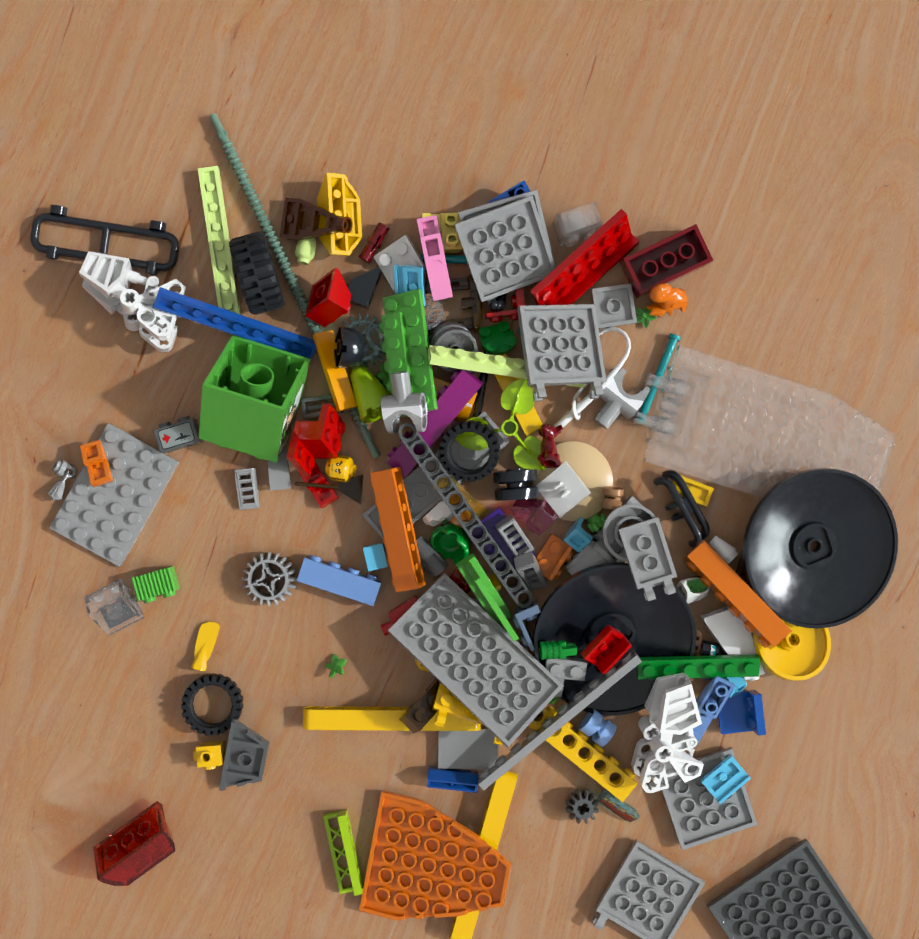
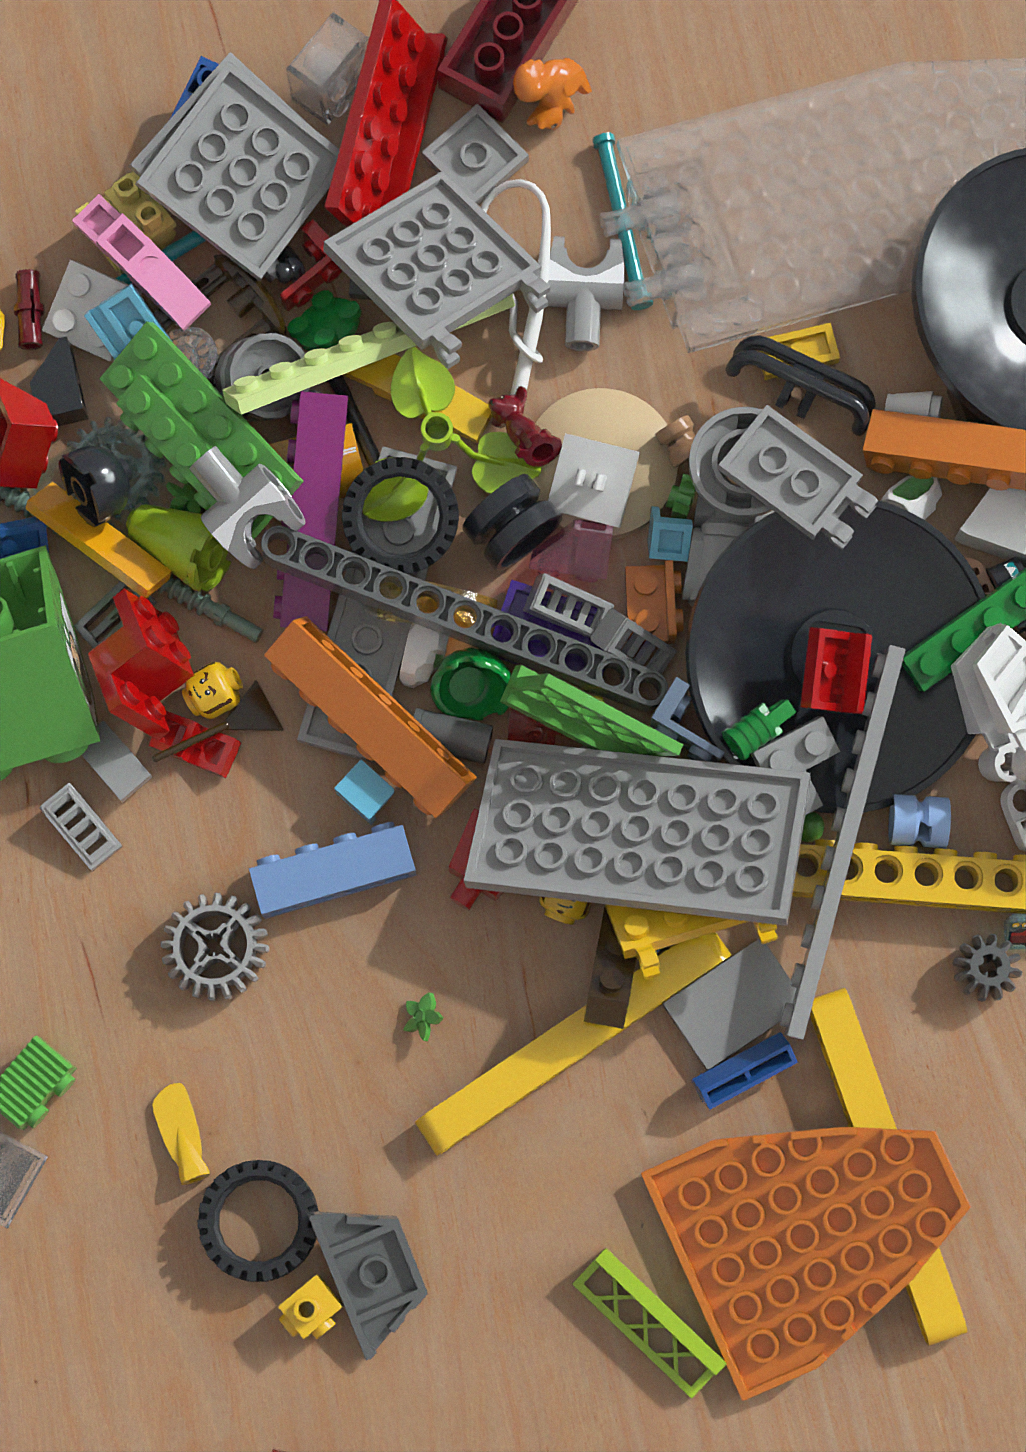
camera: 35 degrees left, 10 degrees down
(644, 316) = (535, 141): bright green plant -> none

